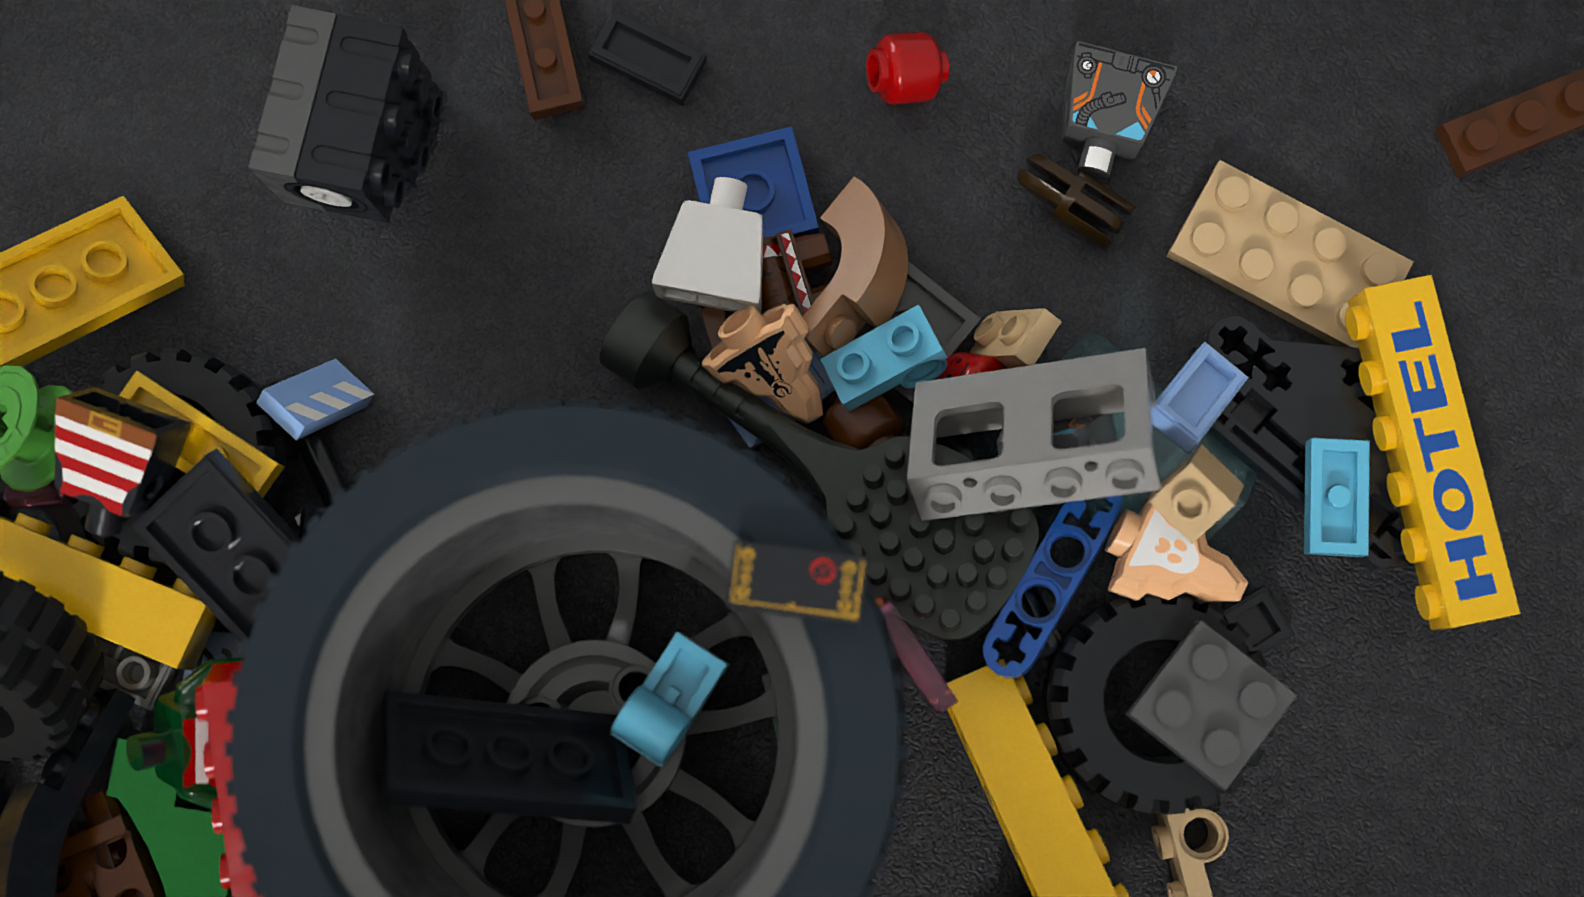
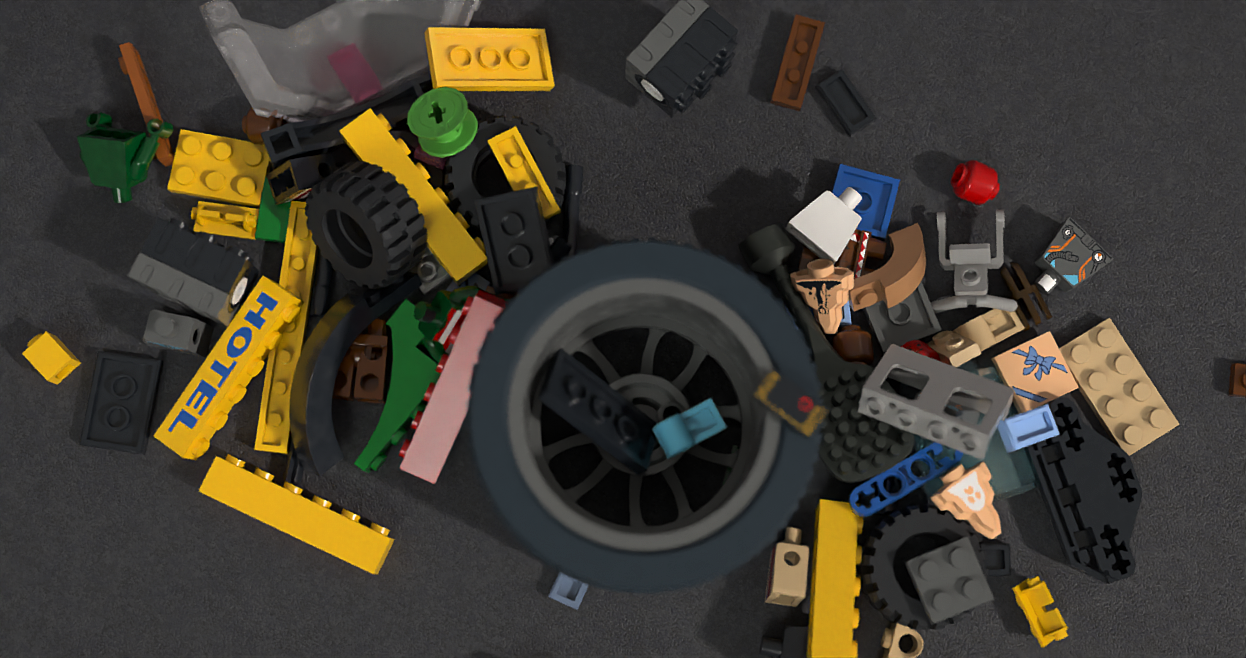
camera: 20 degrees right, 0 degrees up
(114, 455) = (486, 163): torso -> none
(315, 399) = (588, 185): light blue tile -> none
(887, 356) = (883, 322): medium azure plate -> none
(916, 660) = (817, 484): clear pink tile -> none
(958, 848) = (787, 583): none -> tan torso
(972, 199) = (971, 269): none -> light grey piece
(1053, 270) = (991, 328): none -> tan plate
(1157, 304) = (1035, 372): none -> light nougat tile
(1197, 494) = (1000, 474): tan brick -> none
(1336, 497) = (1069, 517): medium azure plate -> none
(1349, 651) = (1045, 625): none -> yellow hinge
(1430, 454) = (1128, 522): yellow brick -> none

